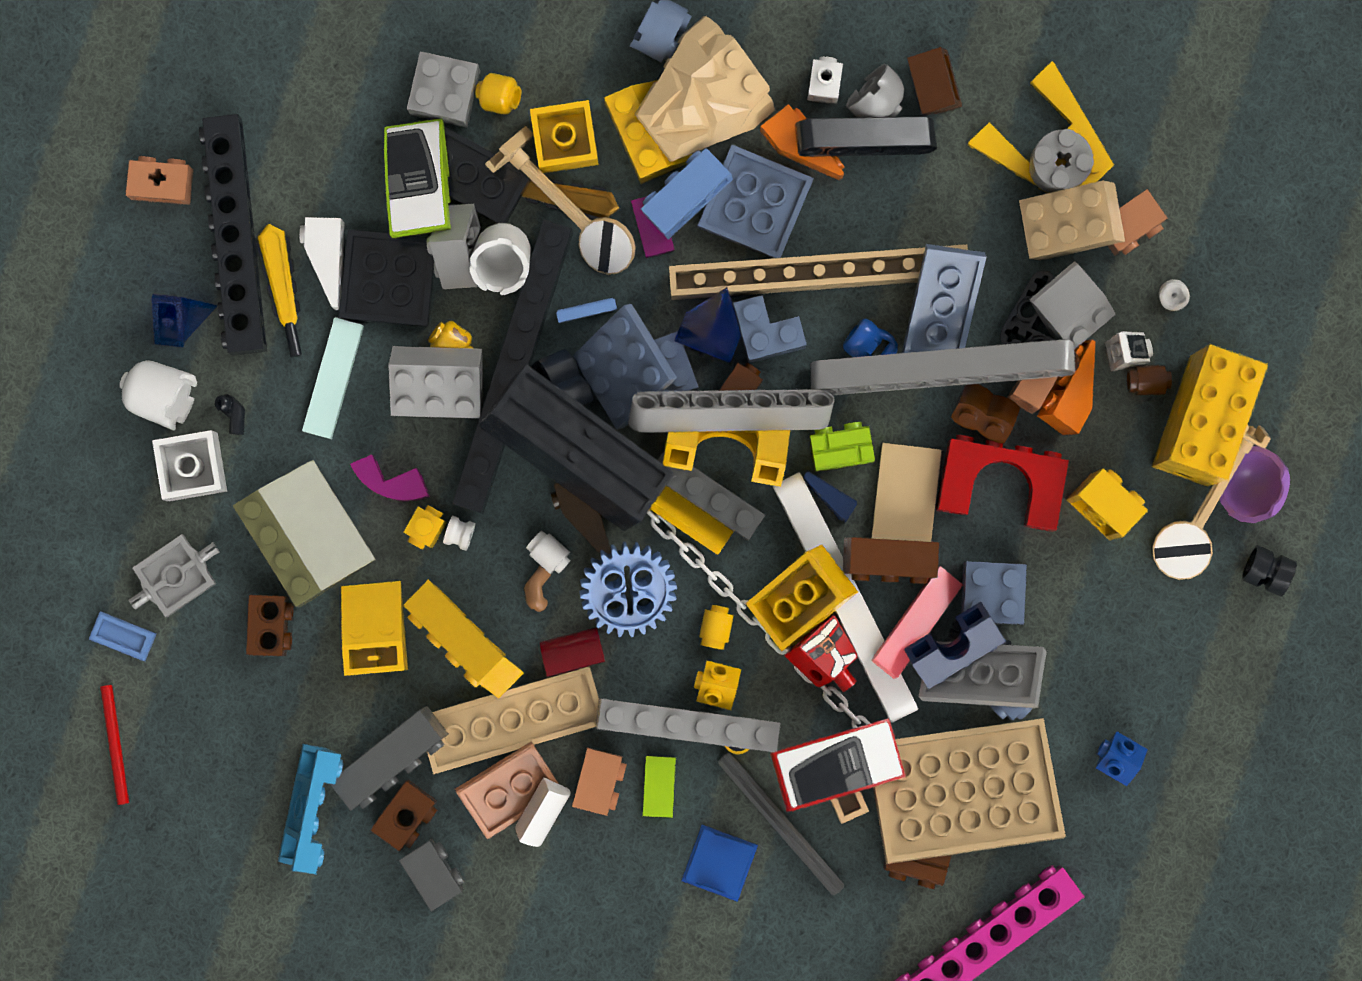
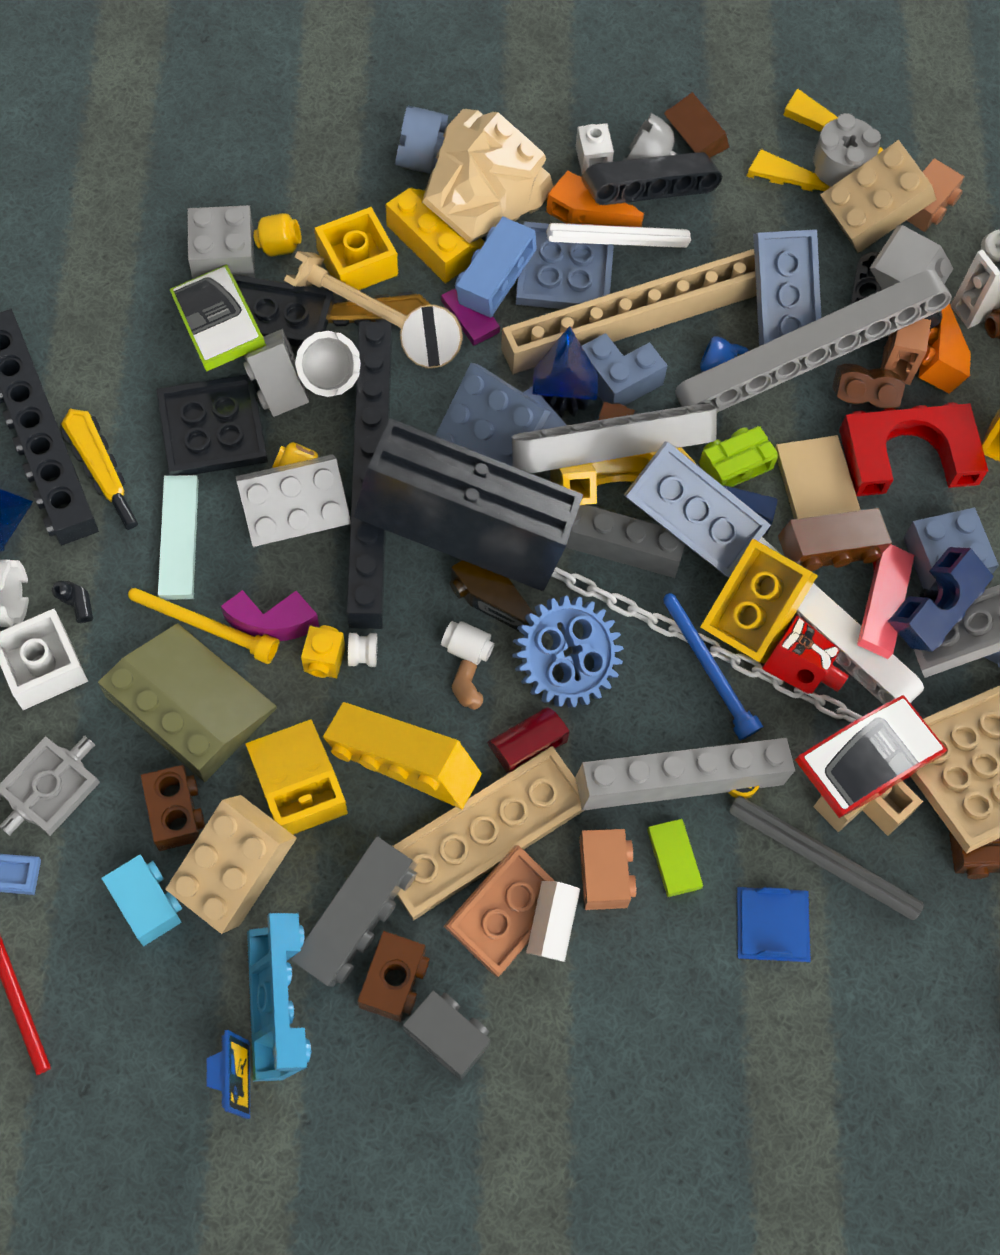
camera: 25 degrees left, 20 degrees down
(227, 694) = (142, 899): none -> medium azure brick
(260, 857) = (230, 1073): none -> piece
(301, 693) = (230, 863): none -> tan brick
(324, 246) = (136, 415): white slope -> none
(376, 504) = (261, 647): none -> yellow piece
(586, 310) = (430, 393): medium blue tile -> none
(691, 520) = (607, 568): yellow tile -> none
(716, 627) = (675, 667): yellow brick -> none
(717, 685) = (701, 723): yellow brick -> none
(756, 691) = (744, 721): none -> blue piece
(774, 504) = (696, 508): none -> plate
(813, 188) = (618, 235): none -> white axle

